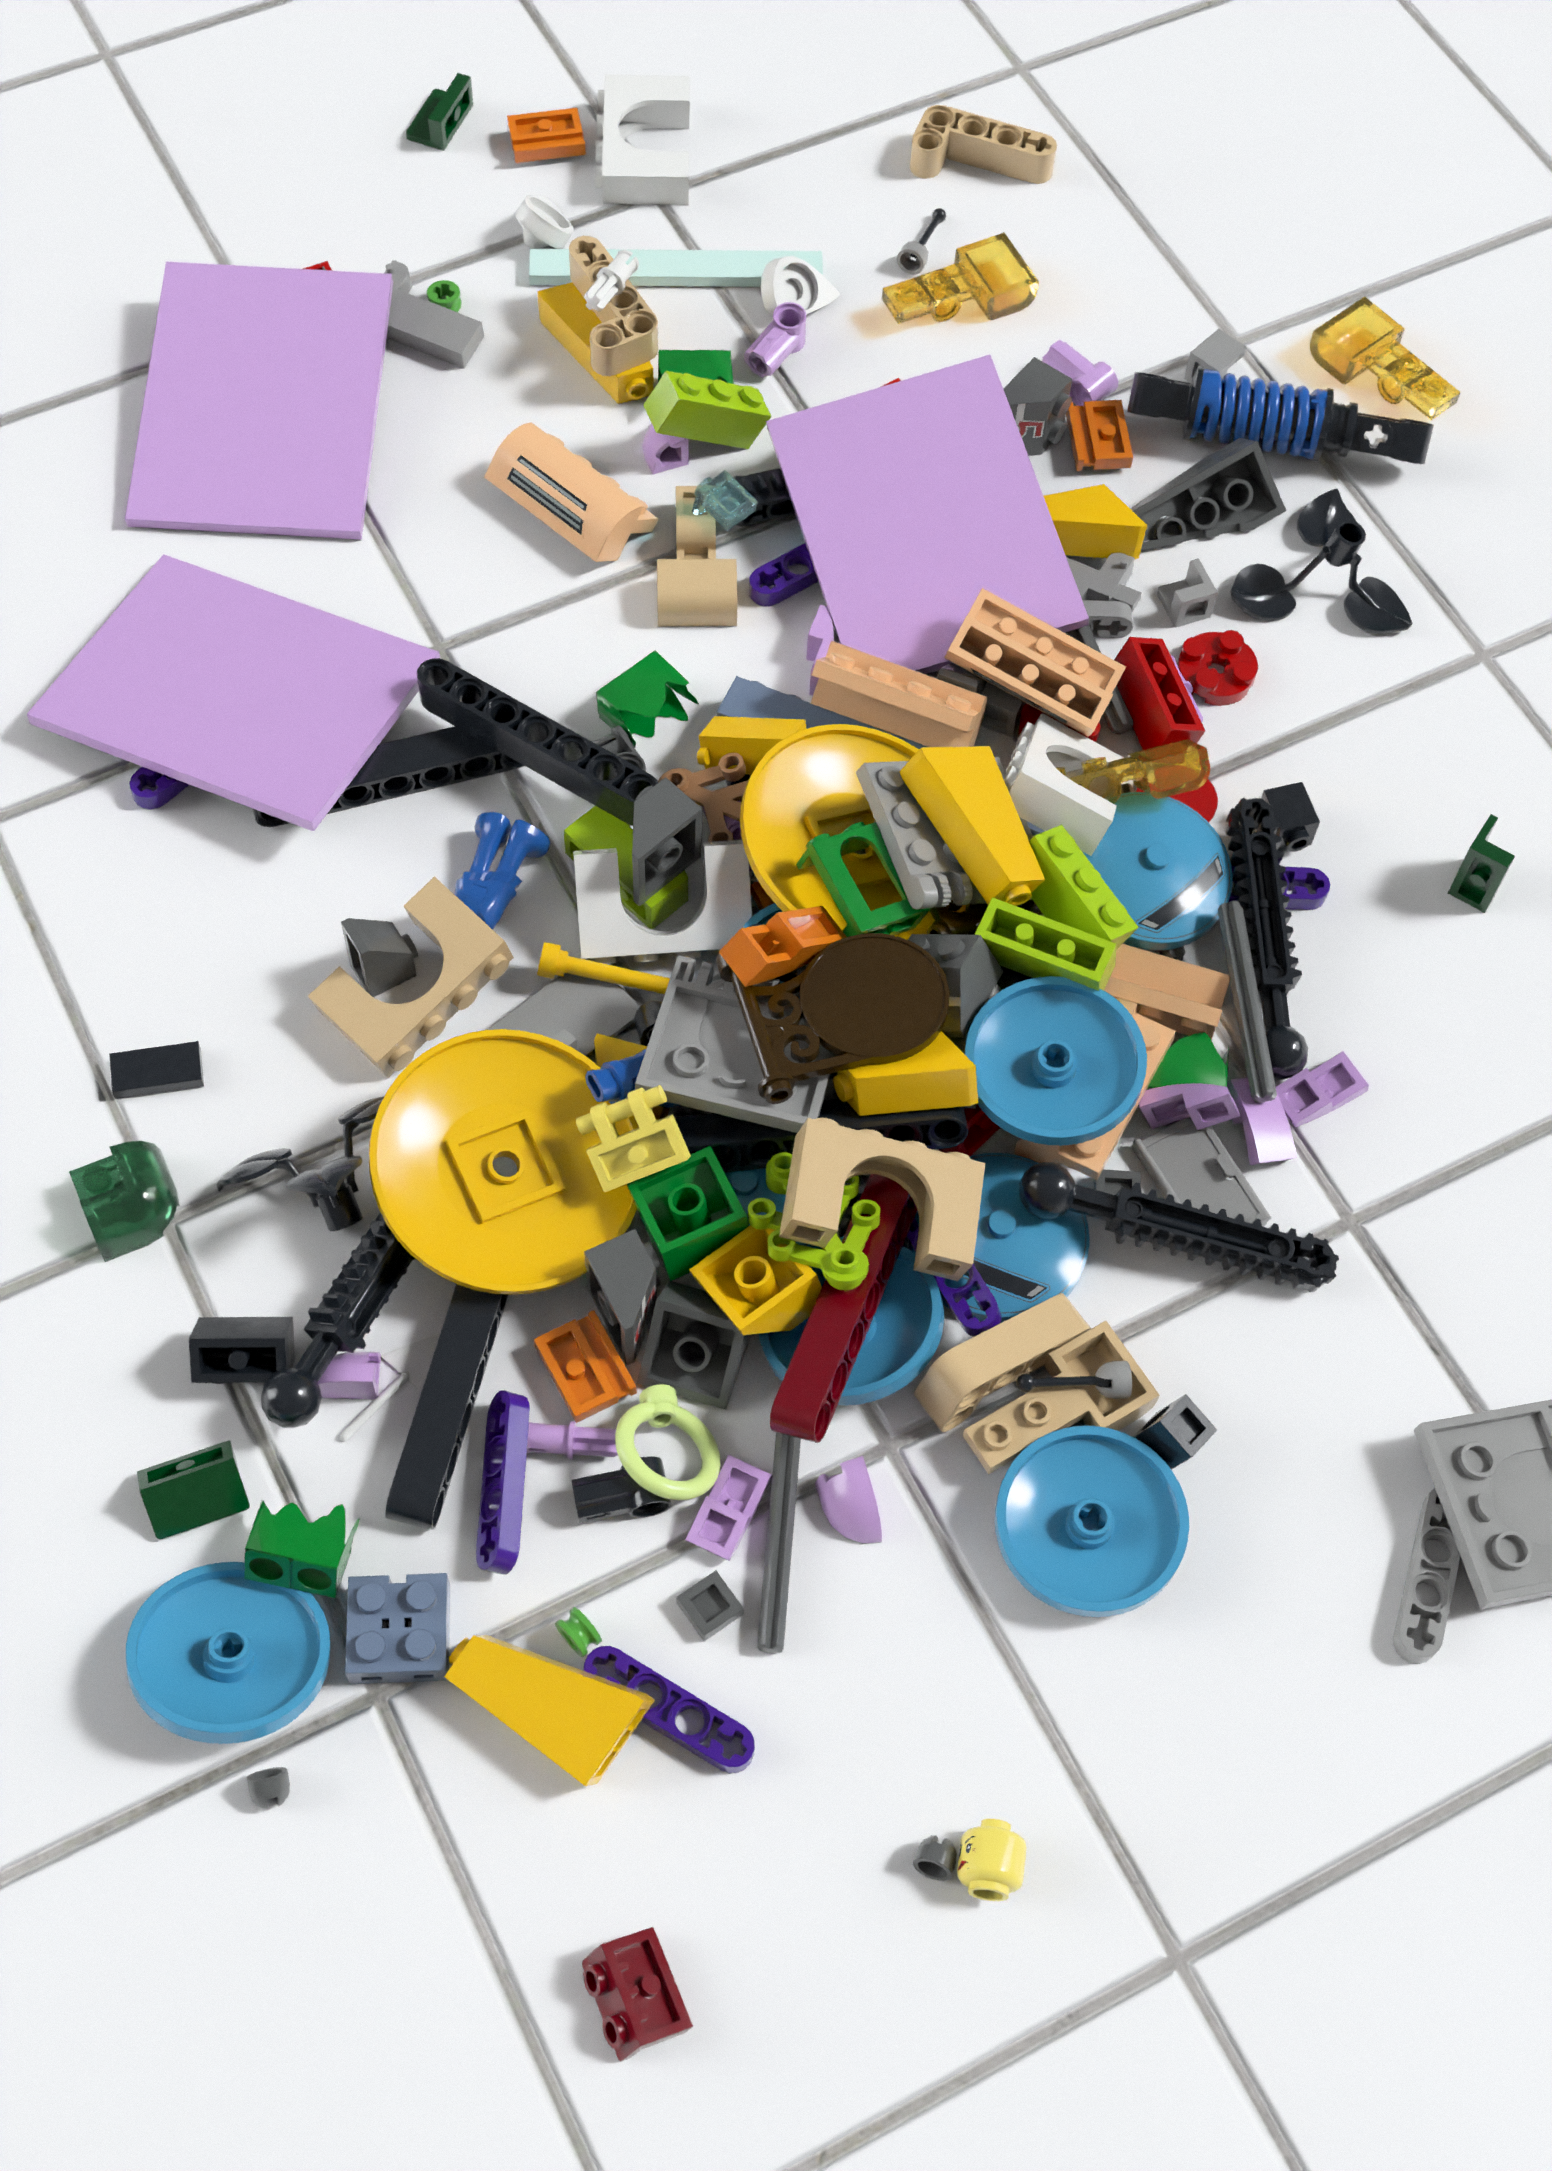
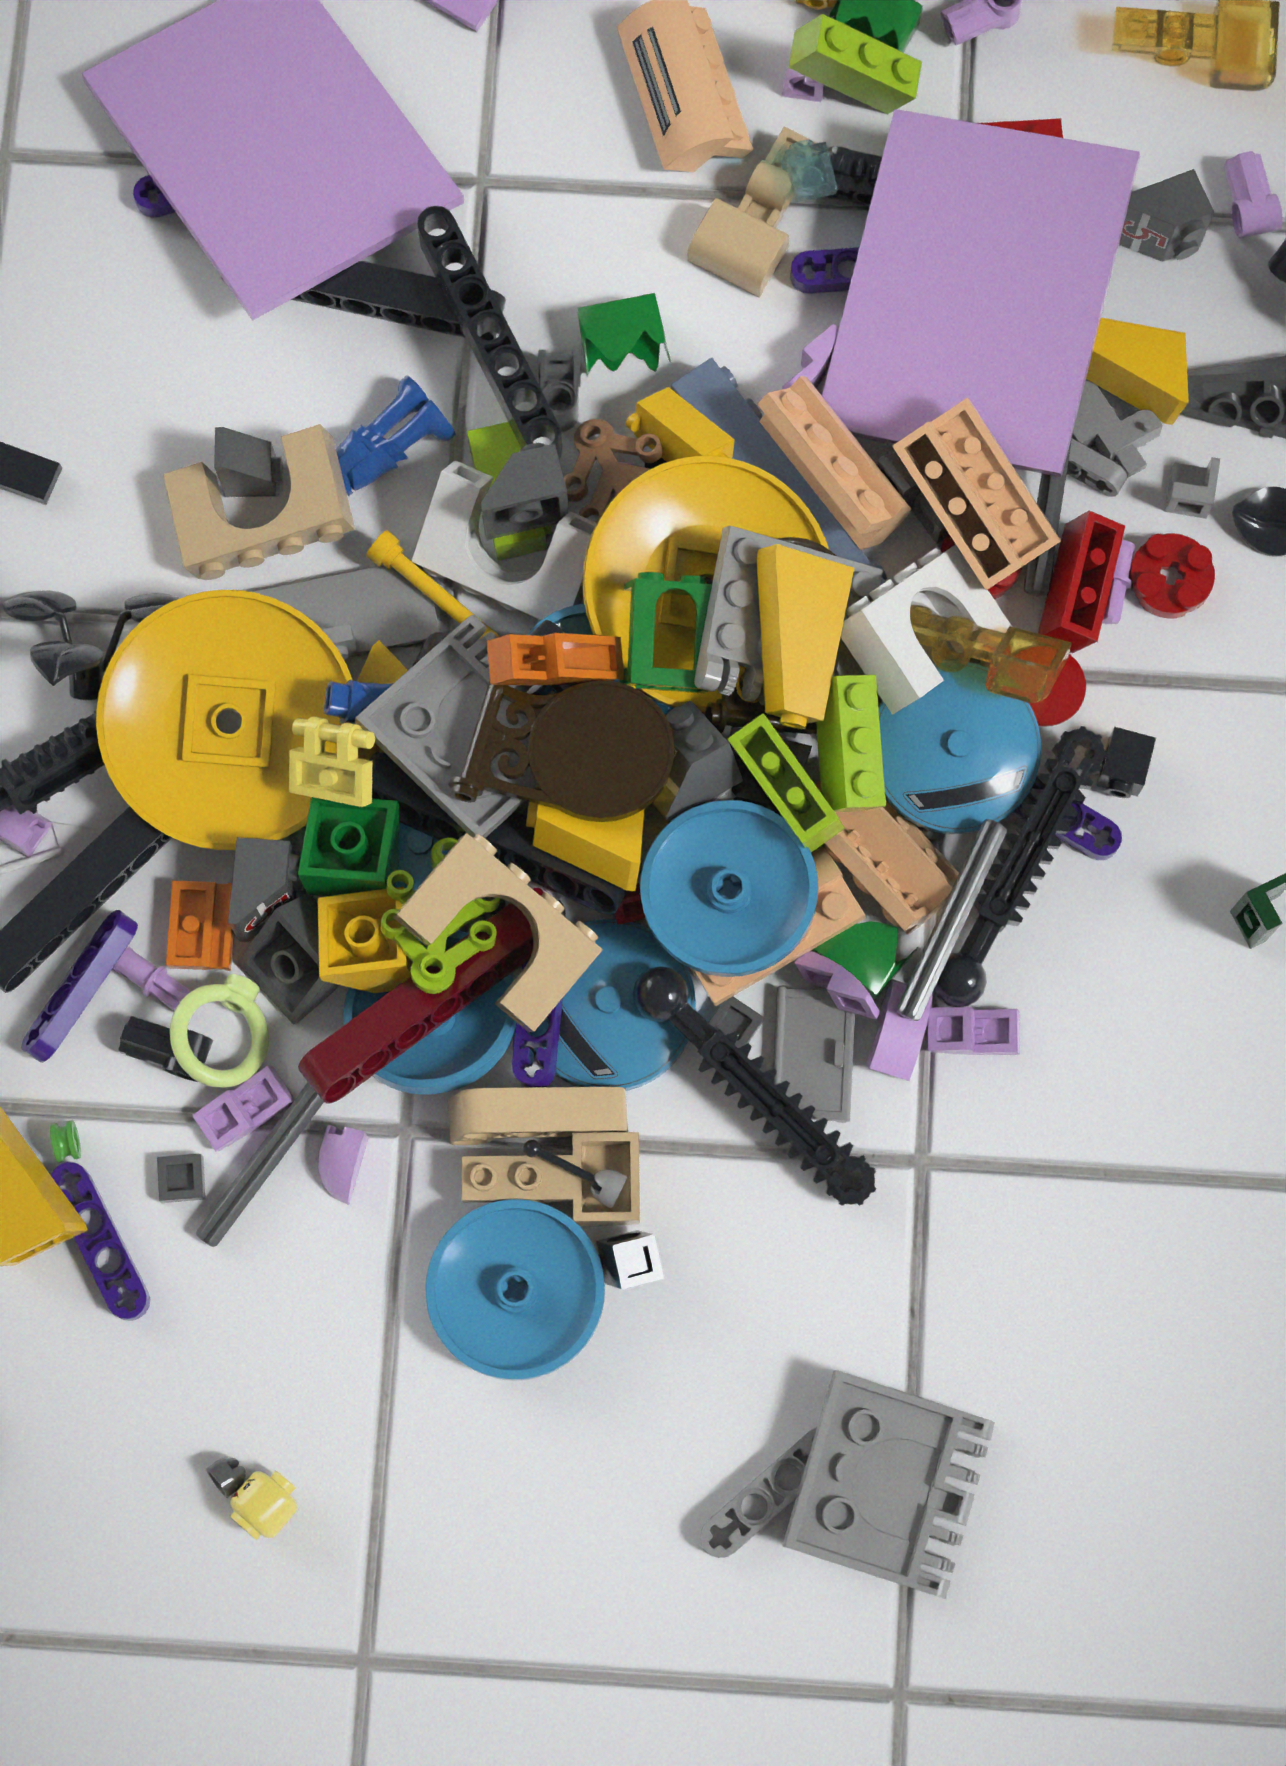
camera: 35 degrees right, 15 degrees up
(1099, 435) = (1226, 272): orange plate -> none

